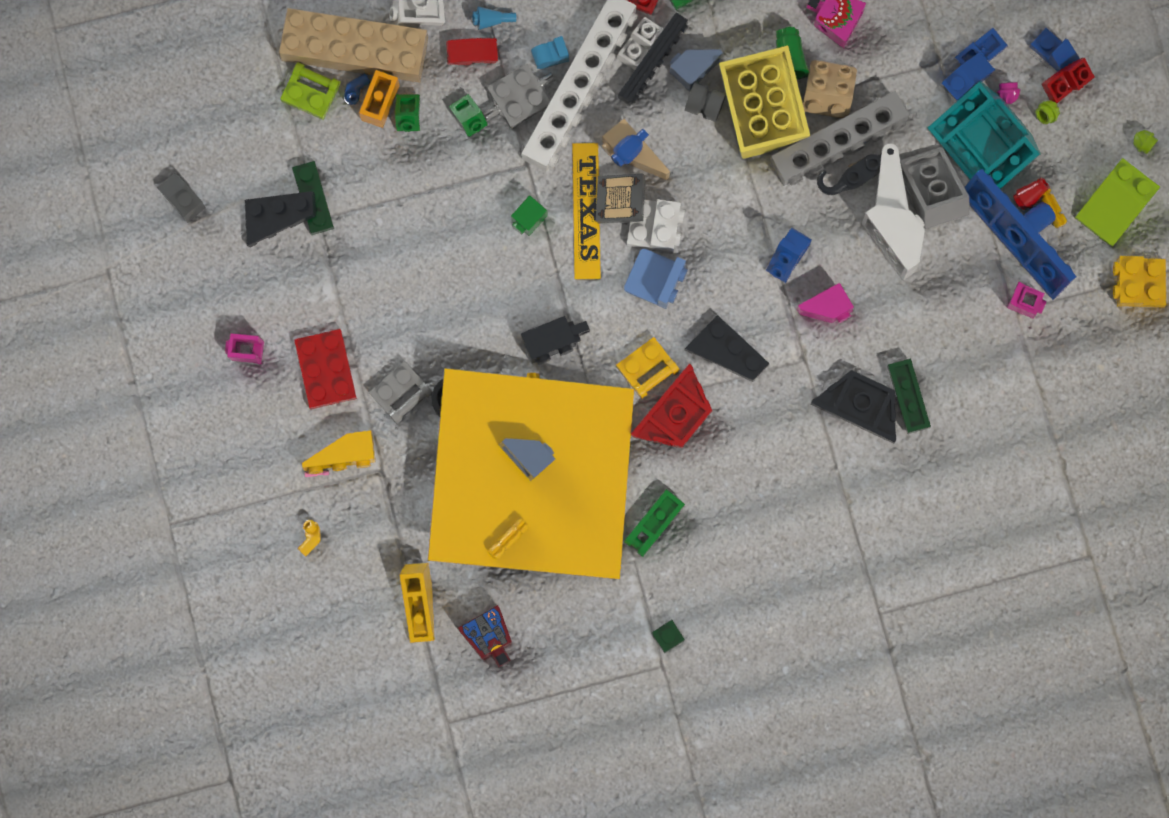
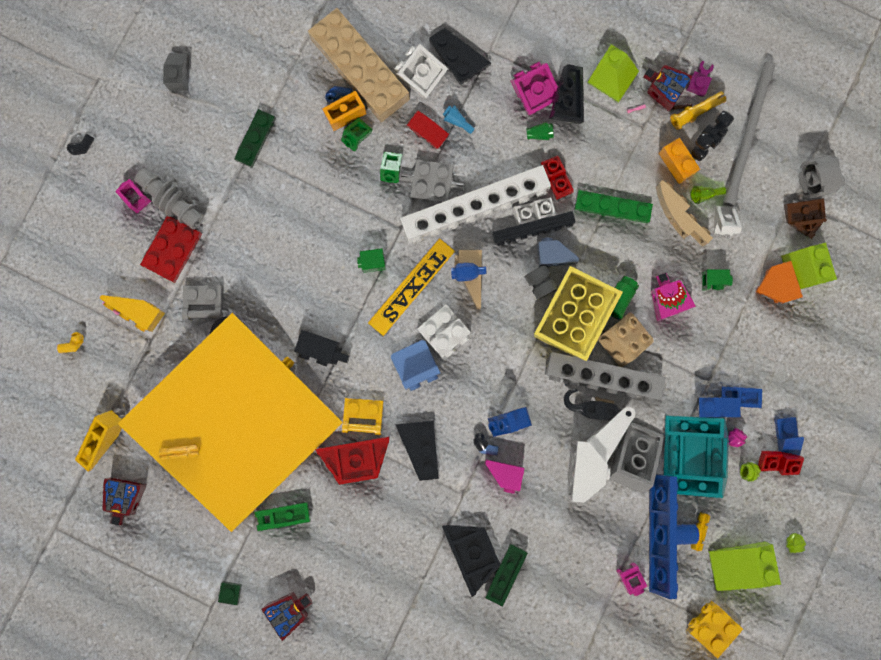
camera: 40 degrees right, 5 degrees up
(152, 346) = (80, 147): none -> black arm
(276, 213) = (223, 129): black wing -> none
(284, 321) = (168, 198): none -> light grey piece
(308, 98) = (305, 75): lime plate -> none
(528, 455) = (236, 411): sand blue slope -> none
(550, 53) = (473, 171): dark azure leg -> none
(620, 198) = (437, 297): tile -> none
(738, 604) = (287, 613): none -> torso
(785, 299) = (482, 446): none -> arm
(1028, 195) = (692, 514): red cone -> none

